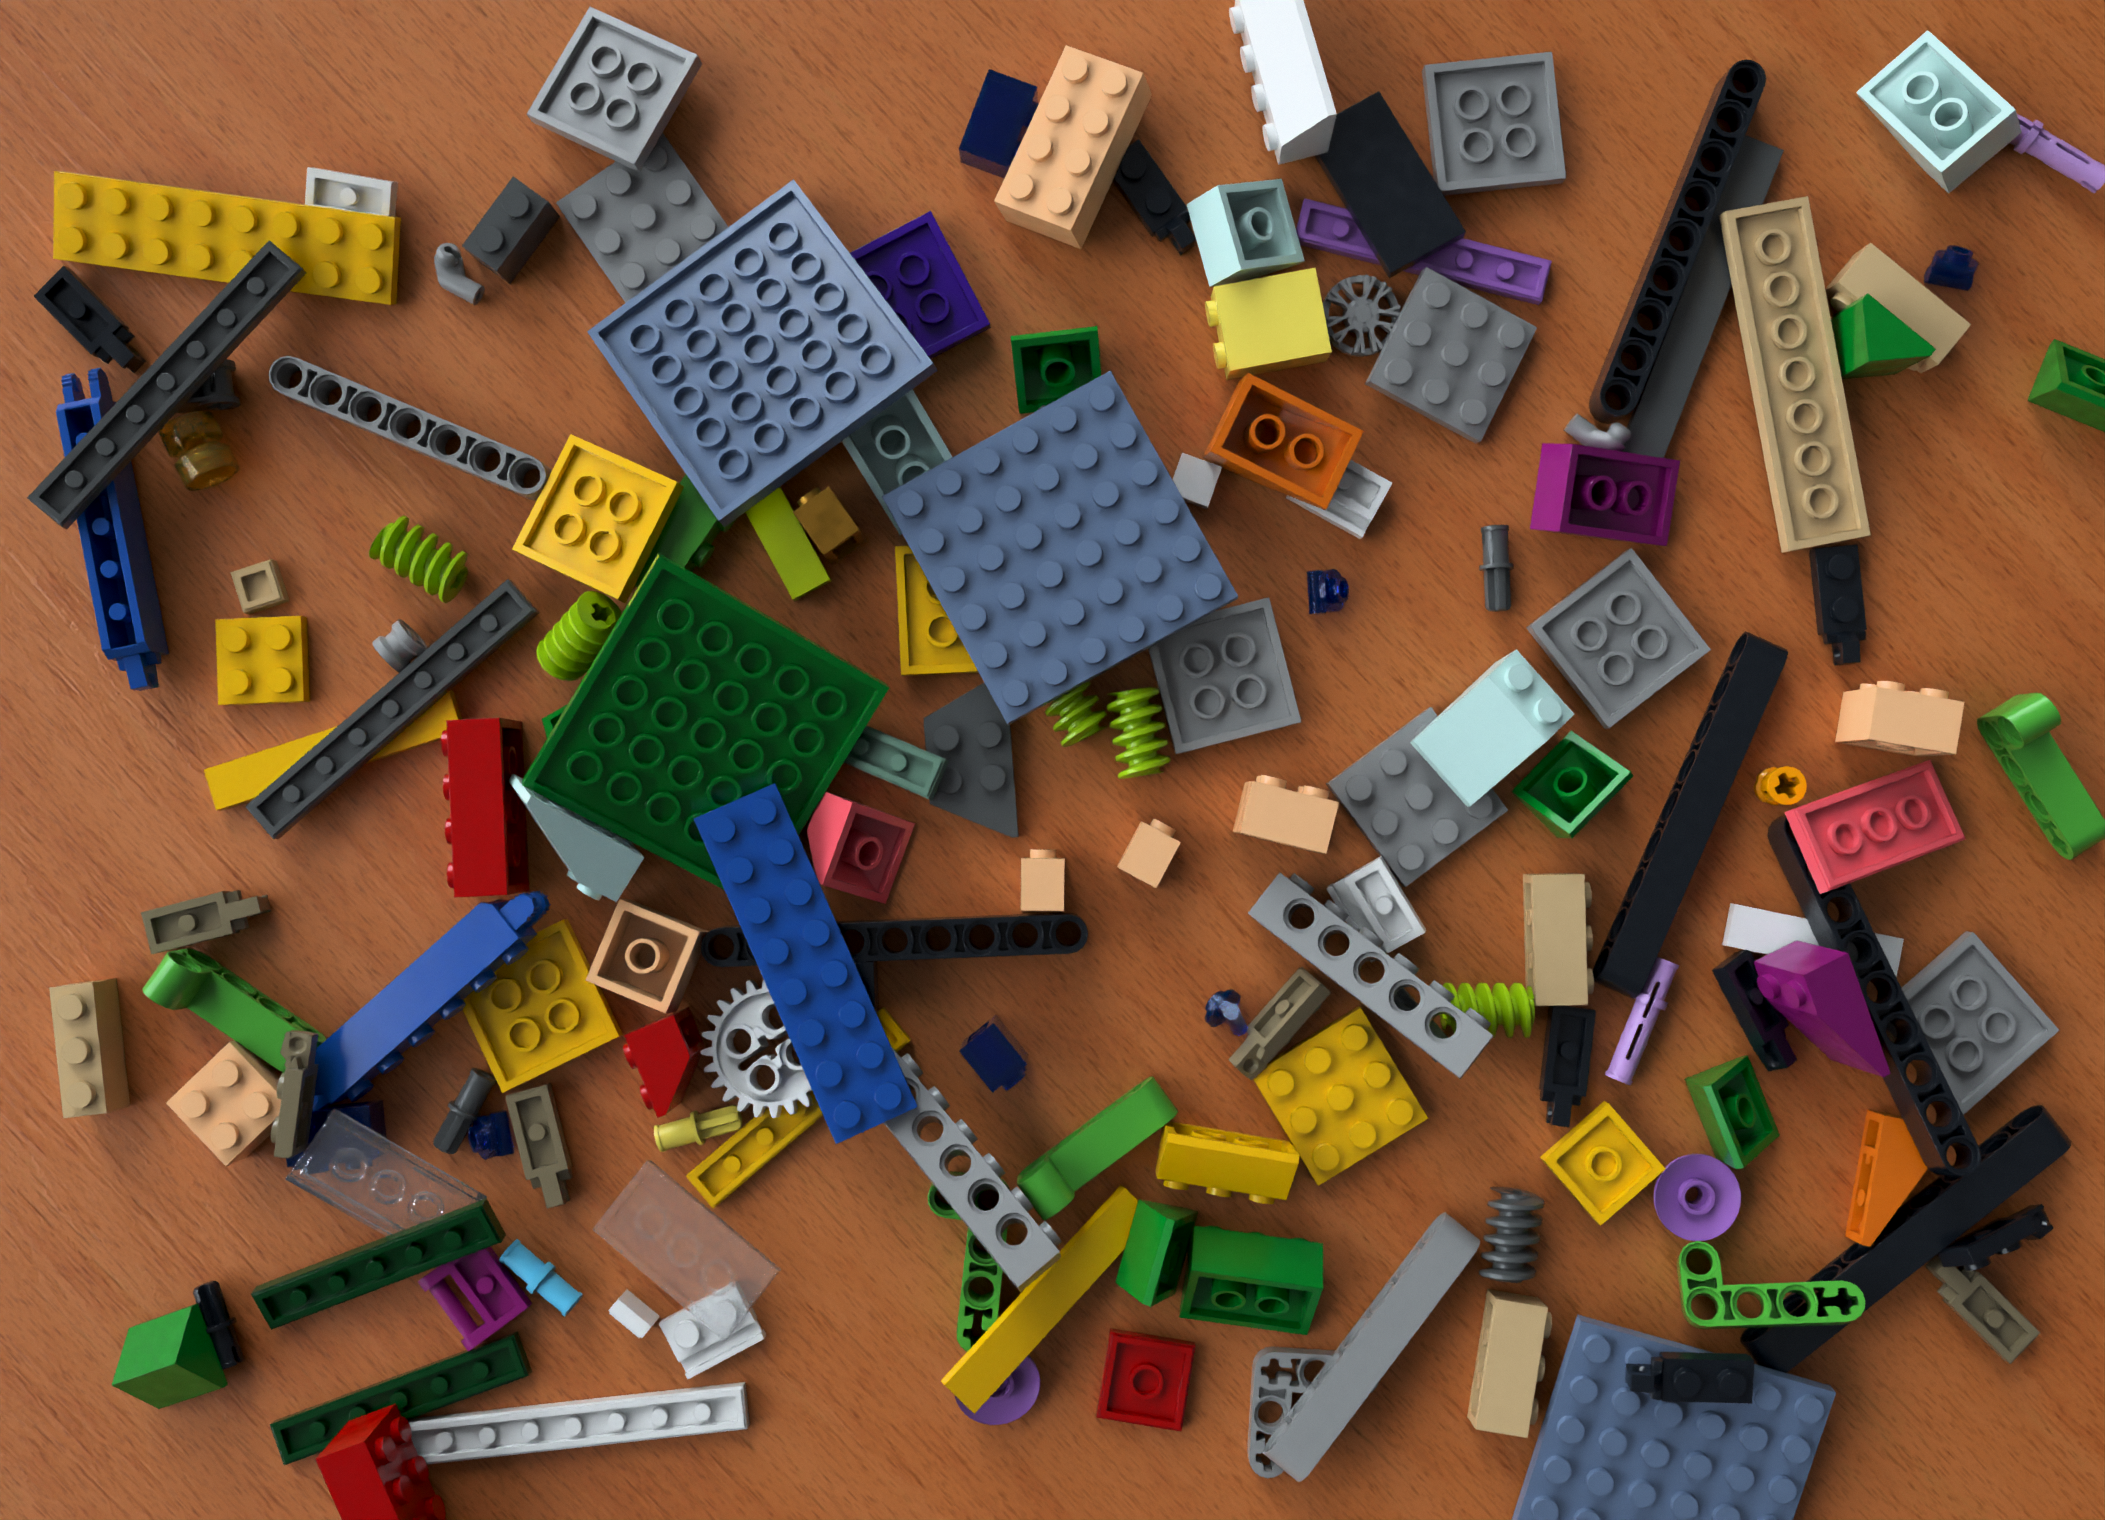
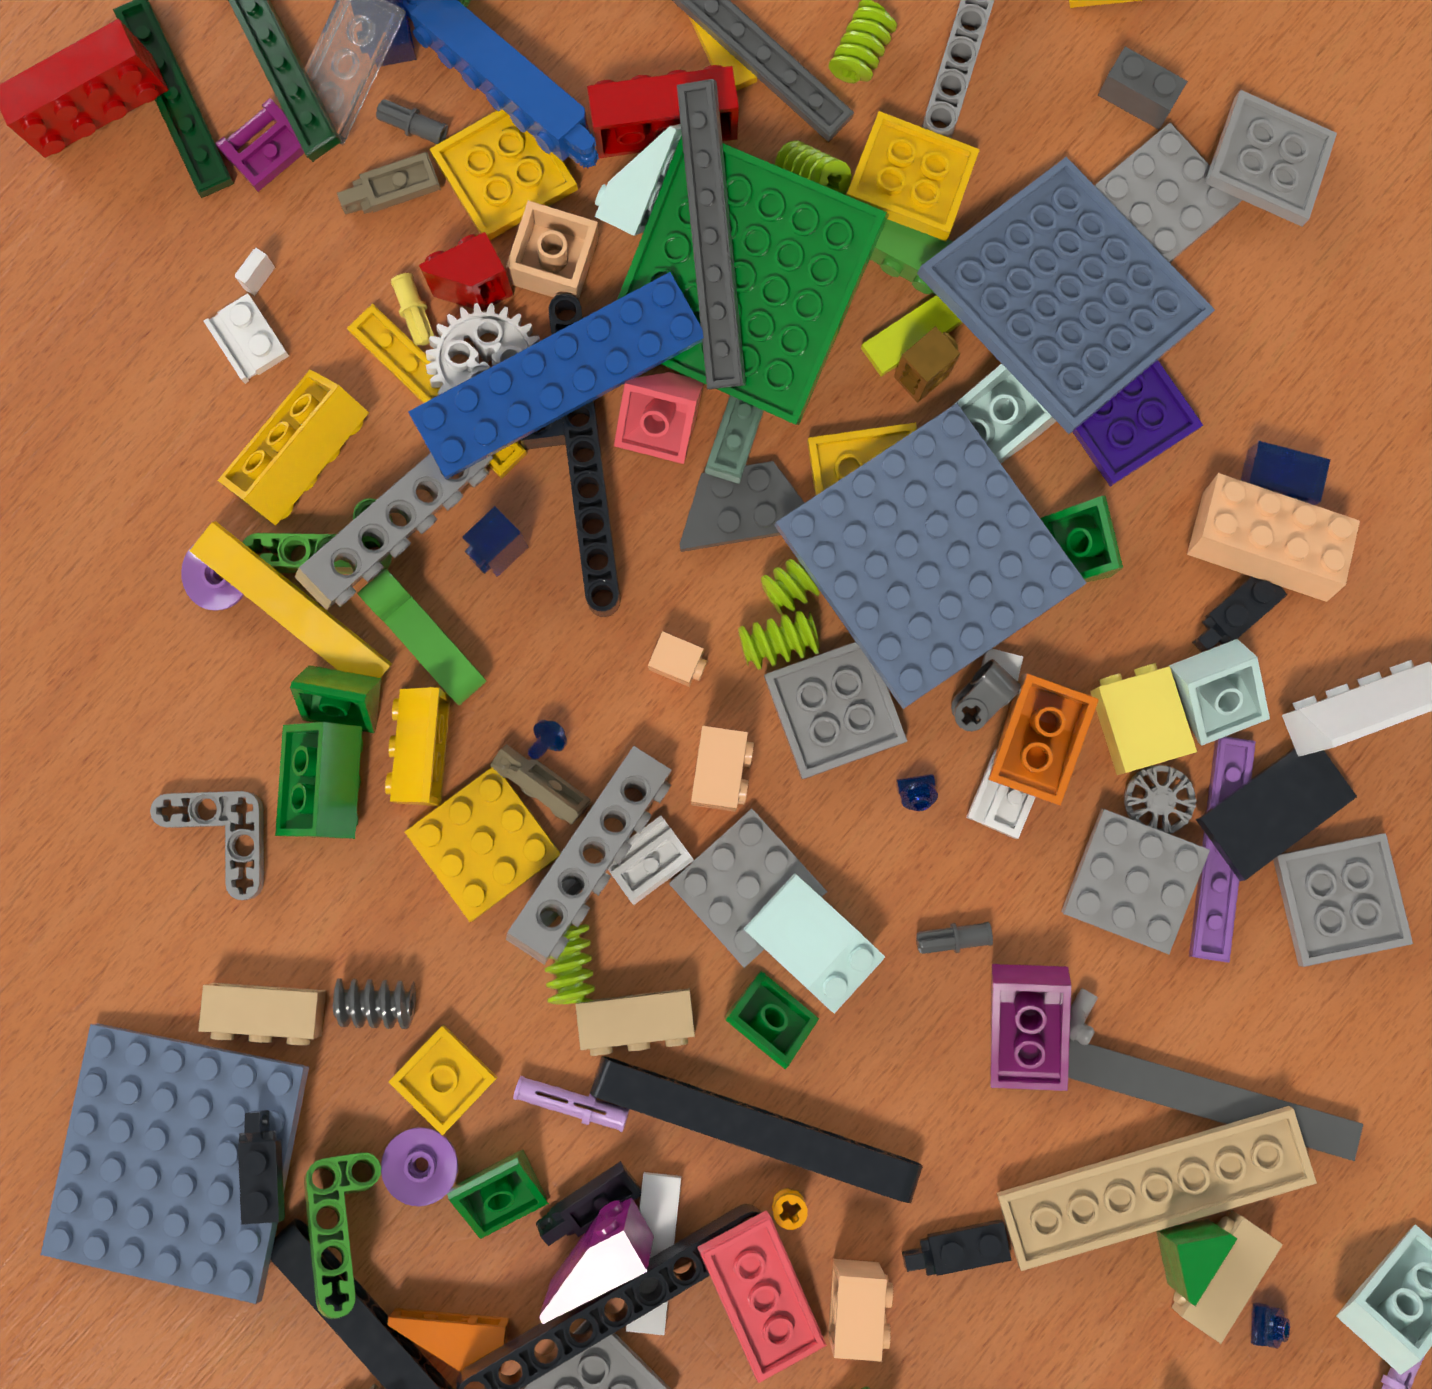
camera: 80 degrees right, 5 degrees down
(399, 645) = (790, 33): light grey wheel -> none
(452, 275) = (1098, 48): light grey arm -> none
(491, 1135) = (393, 145): clear blue plate -> none
(540, 1277) = (279, 195): medium azure pin -> none
(581, 1423) = (161, 241): white tile -> none
(653, 765) = (711, 234): none -> dark grey tile
(686, 1249) = (310, 309): clear tile -> none
(854, 1283) = (294, 446): none -> yellow slope
(1042, 881) = (644, 572): light nougat brick -> none
(1145, 1379) = (227, 701): red tile -> none
(1222, 499) = (987, 692): none -> dark grey piece
(1371, 1347) = (269, 889): light grey beam -> none
(1566, 1061) = (530, 1039): black hinge -> none
(1618, 638) = (904, 1051): light grey plate -> none
(1690, 227) = (1277, 1076): black beam -> none

